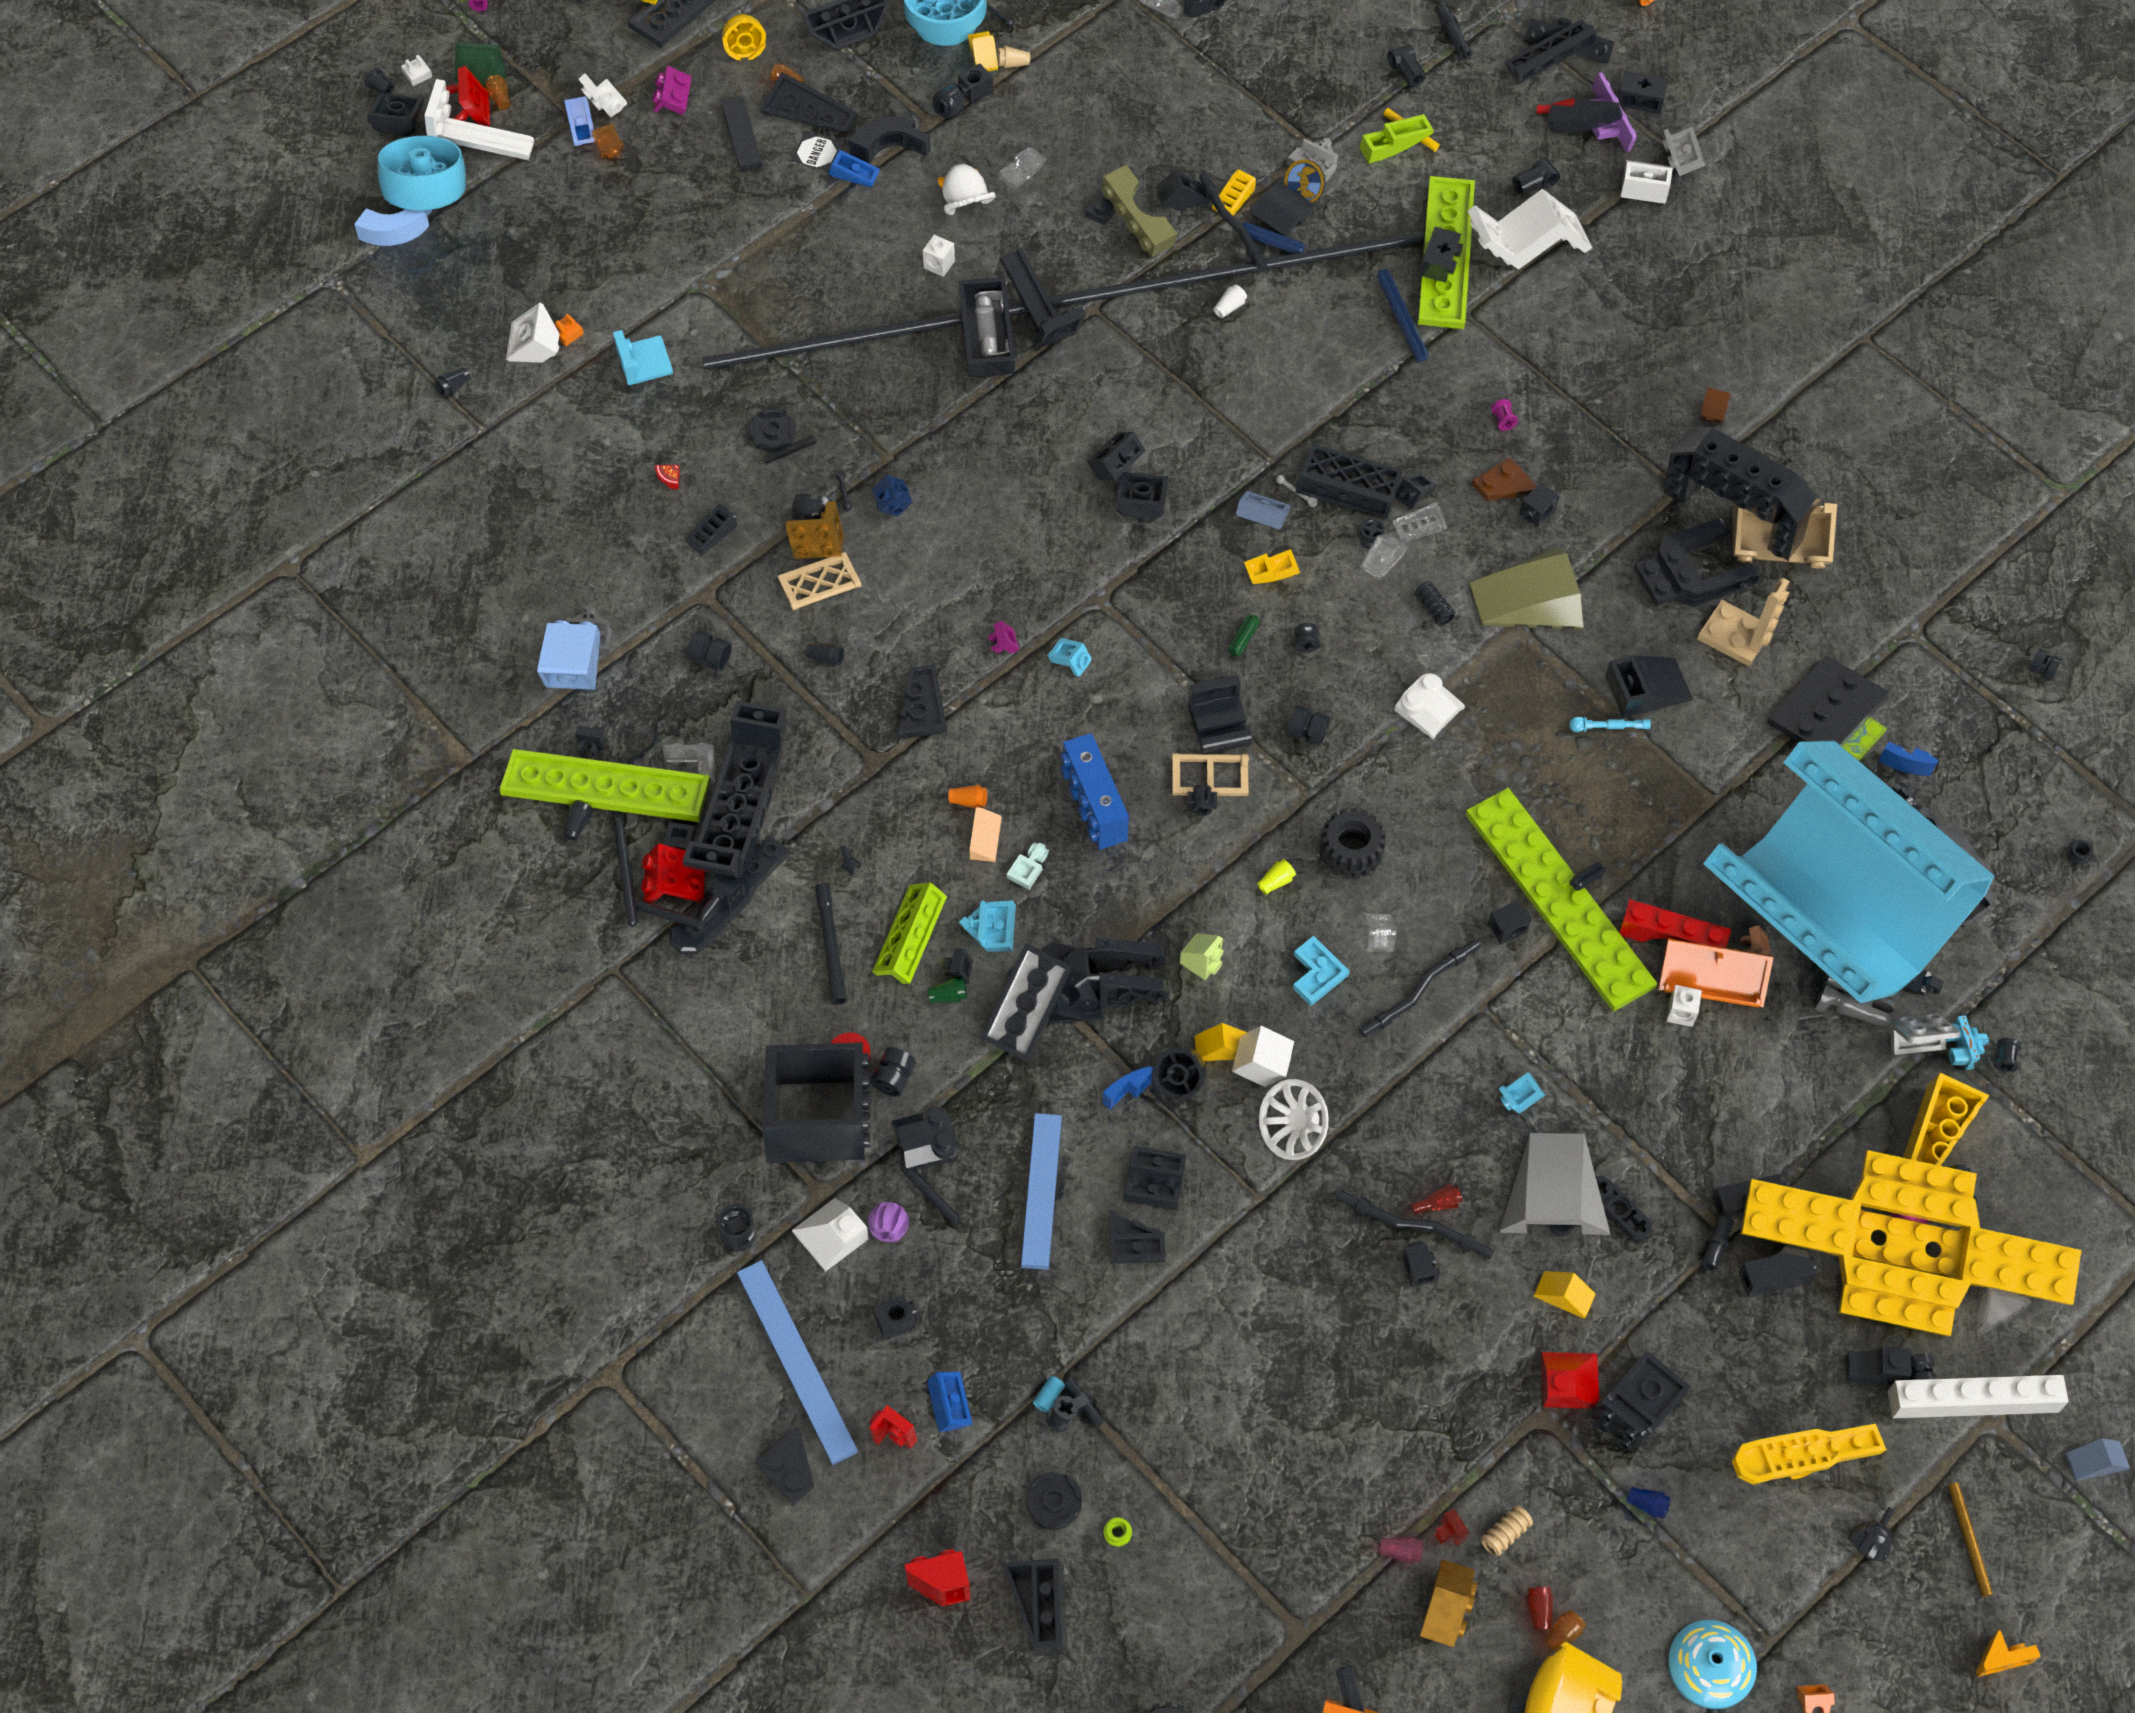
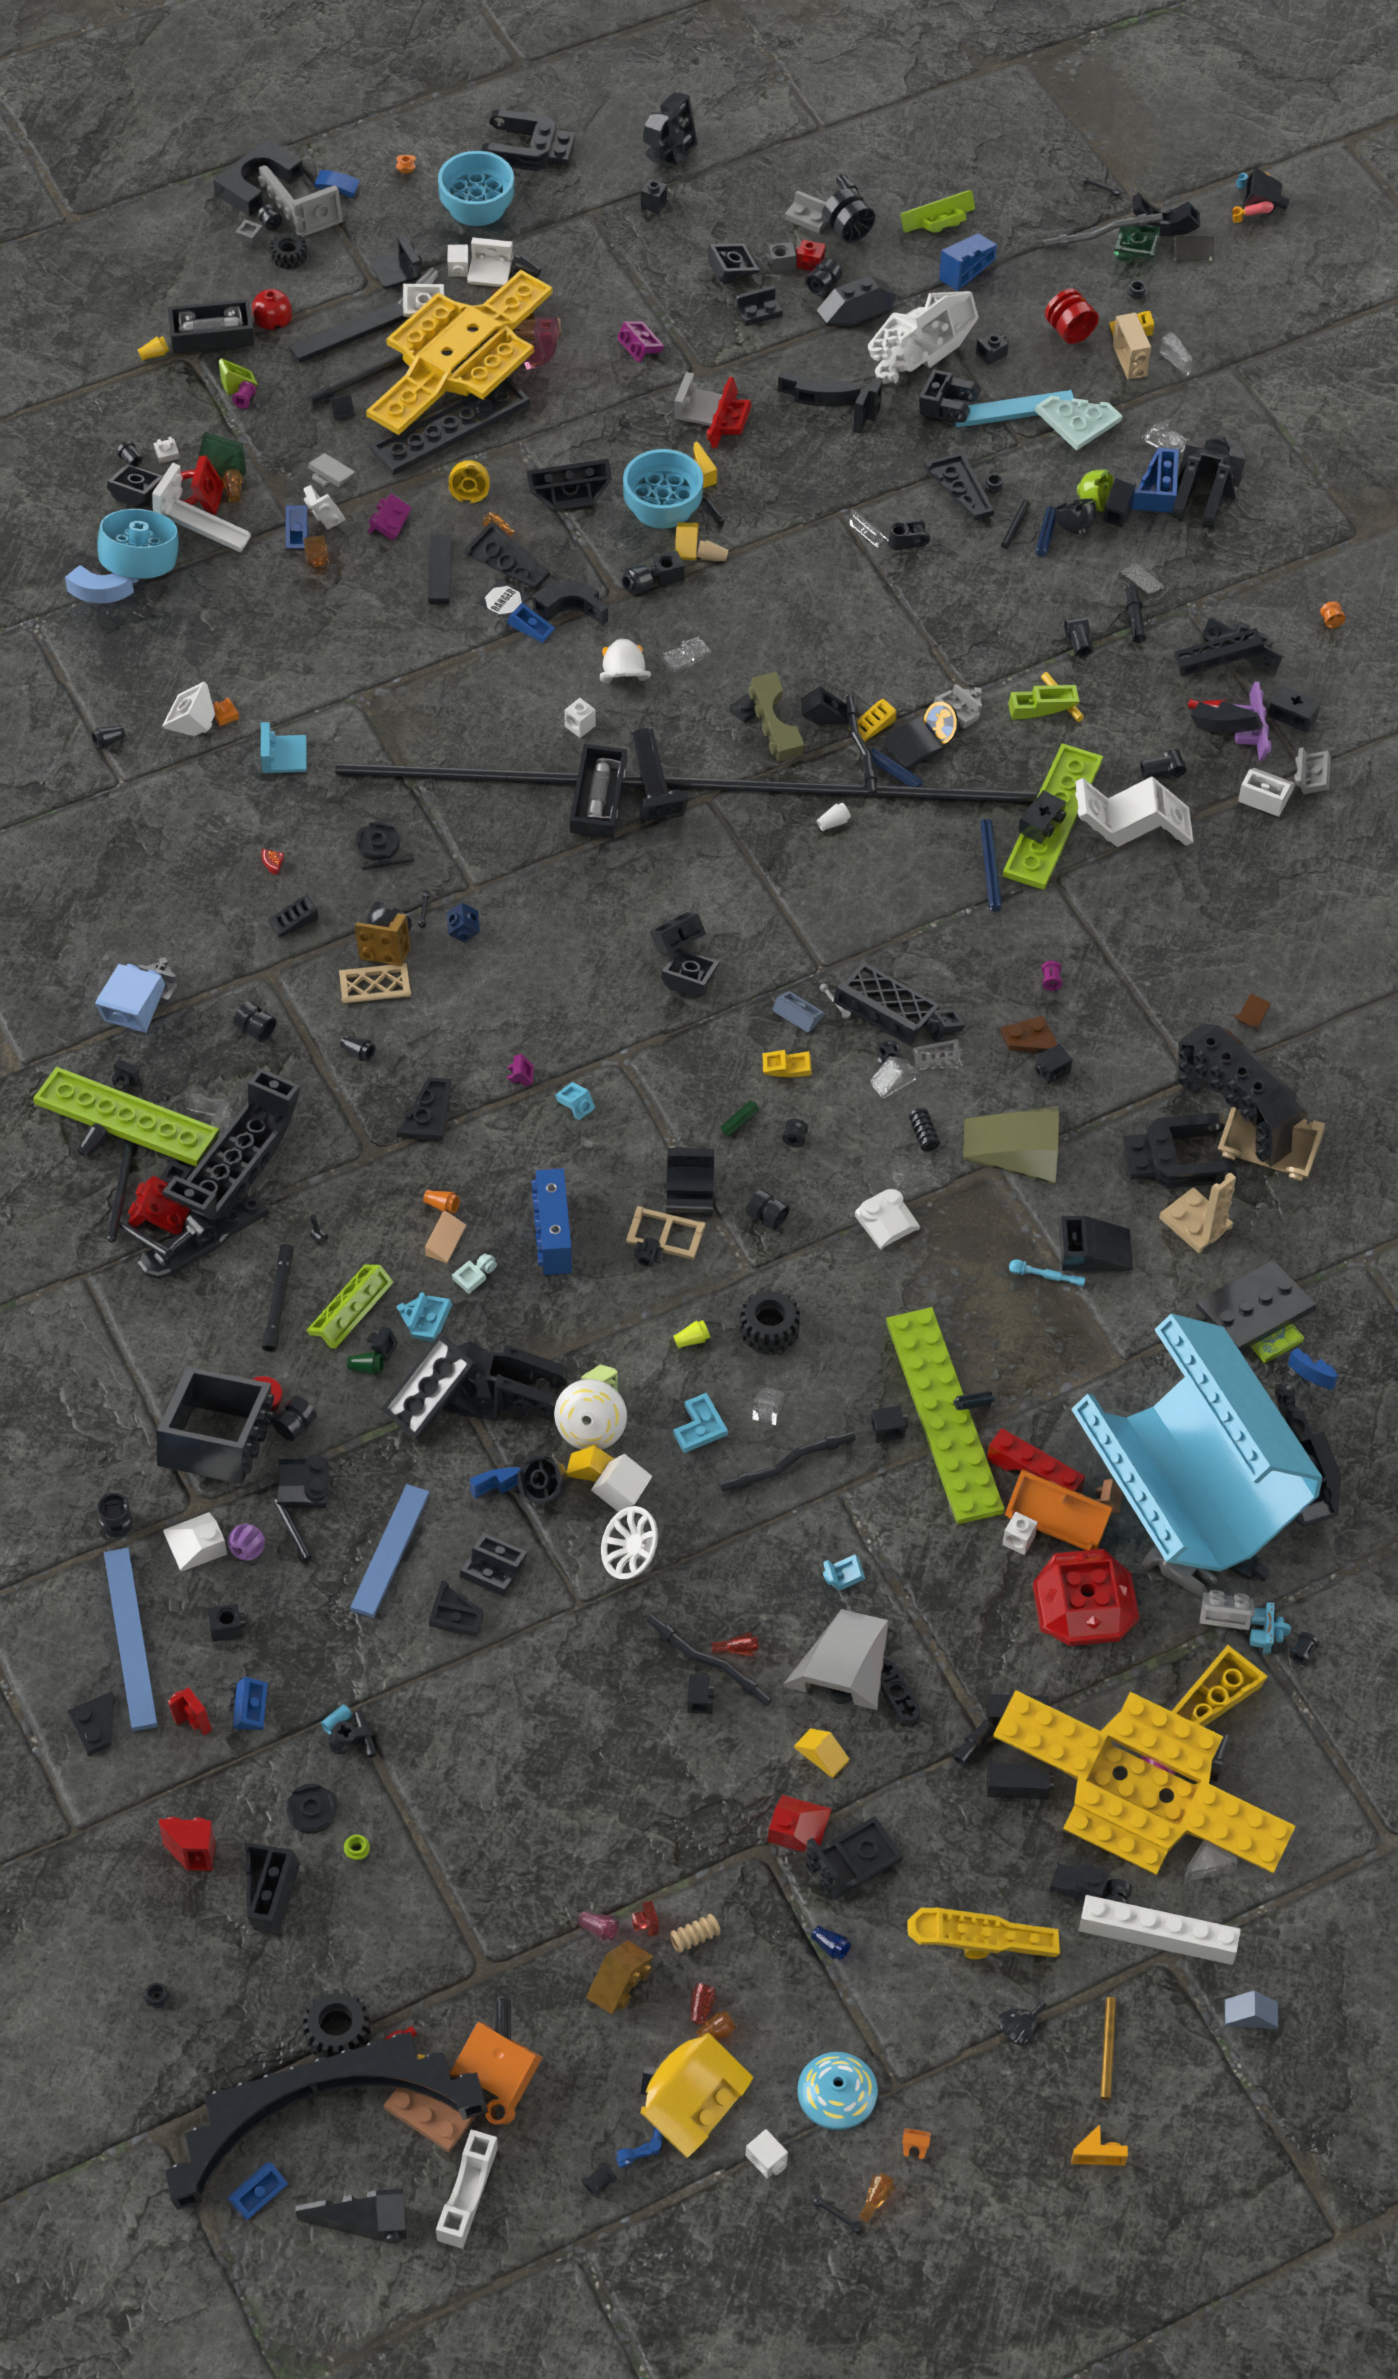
camera: 15 degrees right, 5 degrees down
(593, 55) = (330, 470): none -> light grey piece
(1201, 976) = (598, 1402): none -> white dish
(1758, 1076) = (1084, 1619): none -> red piece

